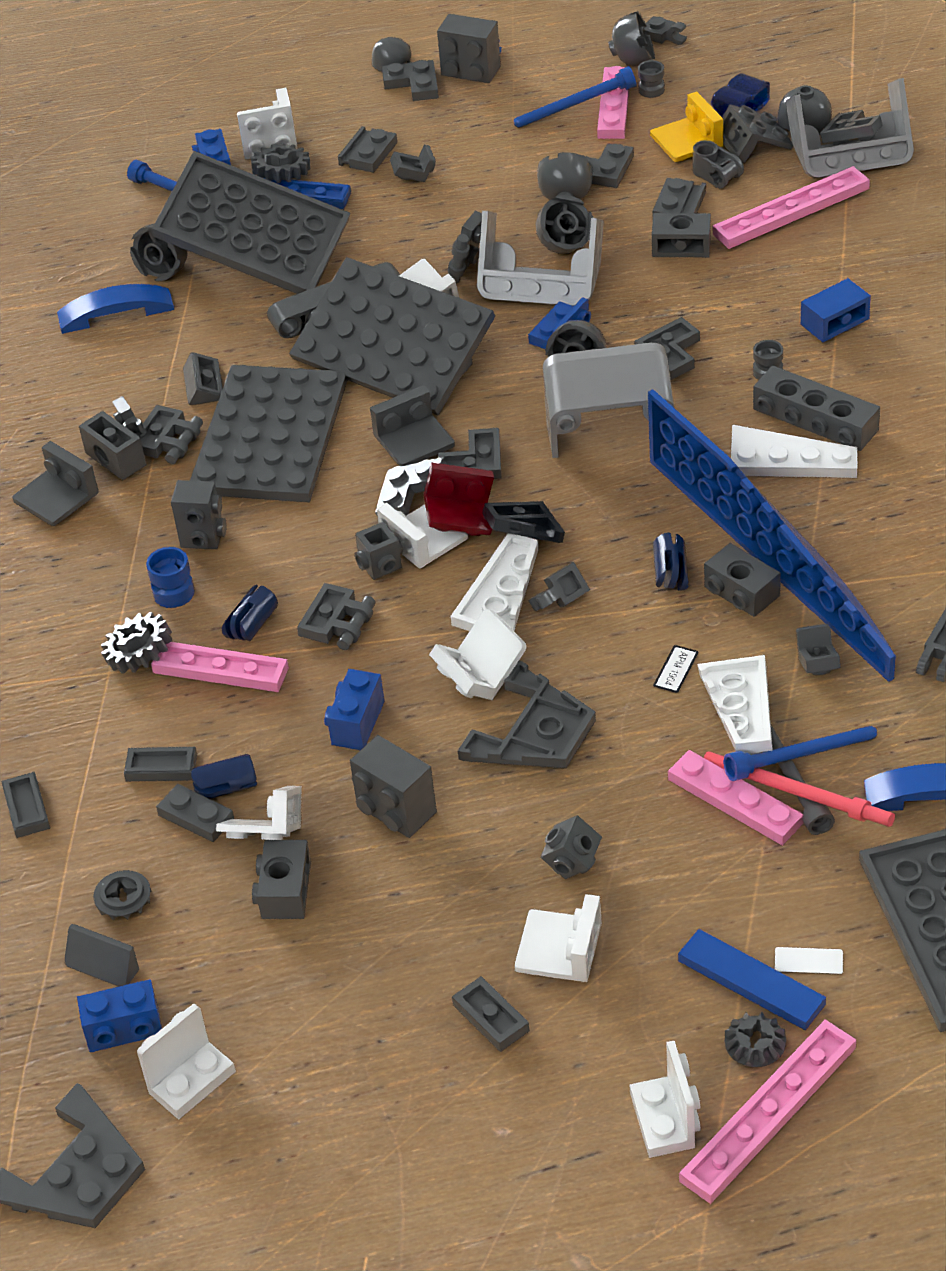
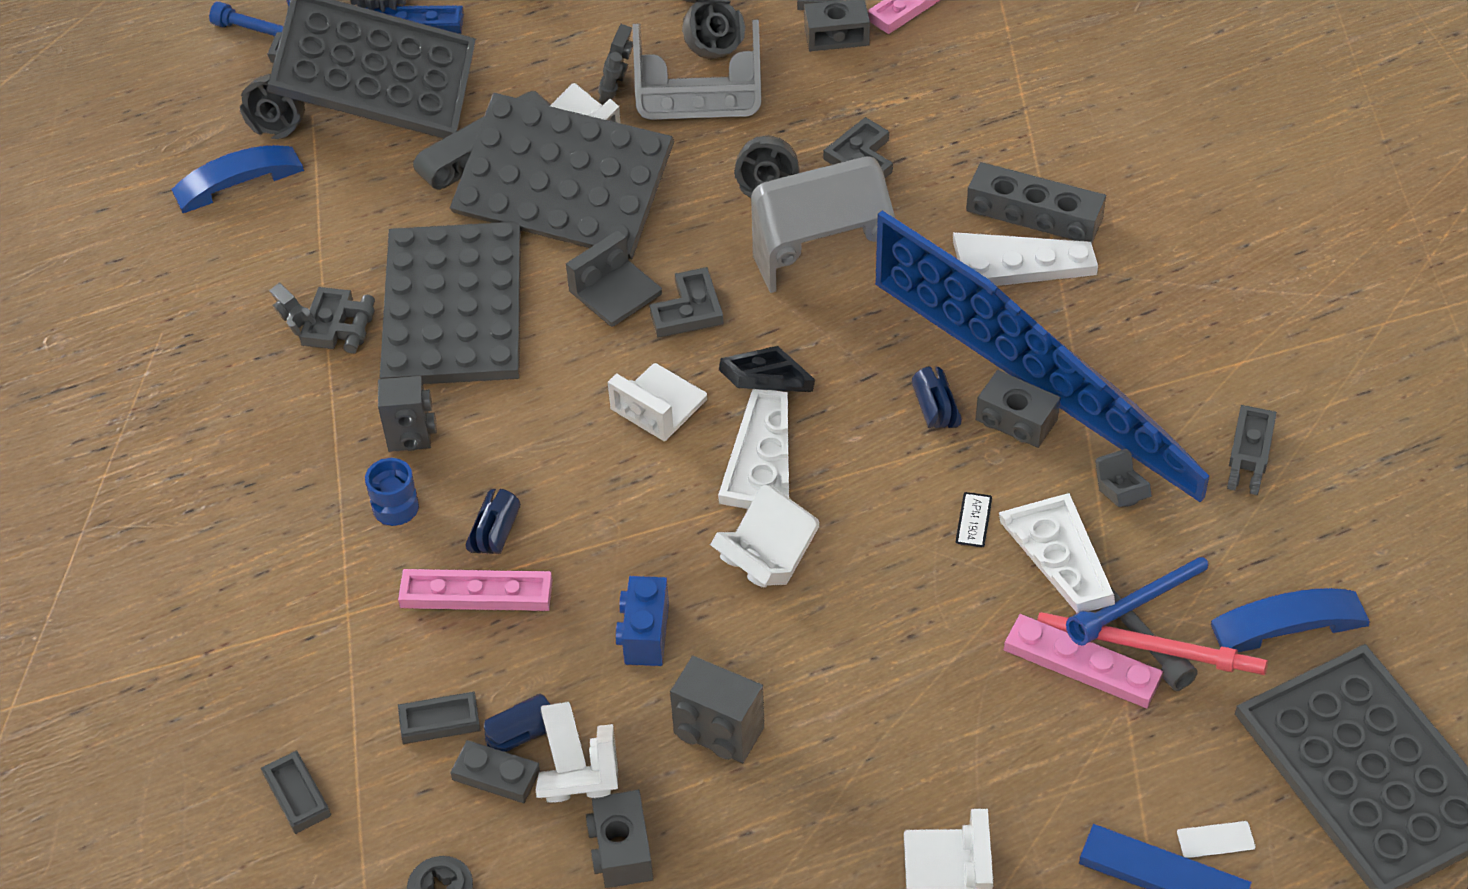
camera: 15 degrees left, 5 degrees up
(61, 488) = (232, 400): dark grey bracket -> none
(112, 445) = (282, 342): dark grey brick -> none
(136, 642) = (374, 576): dark grey gear -> none
(202, 379) = (359, 249): dark grey slope -> none
(256, 790) = (563, 737): none -> white sticker
(327, 612) = (578, 511): dark grey plate -> none
(378, 550) = (618, 429): dark grey brick -> none
(403, 482) = (622, 341): plate -> none
(457, 497) = (688, 357): dark red bracket -> none
(544, 733) = (859, 616): dark grey wing -> none
(557, 316) = (733, 136): blue bracket -> none
(563, 587) = (830, 442): dark grey plate -> none
(571, 847) = (931, 750): dark grey brick -> none
(765, 355) = (969, 152): dark grey wheel -> none
(835, 310) = (1023, 91): blue brick -> none

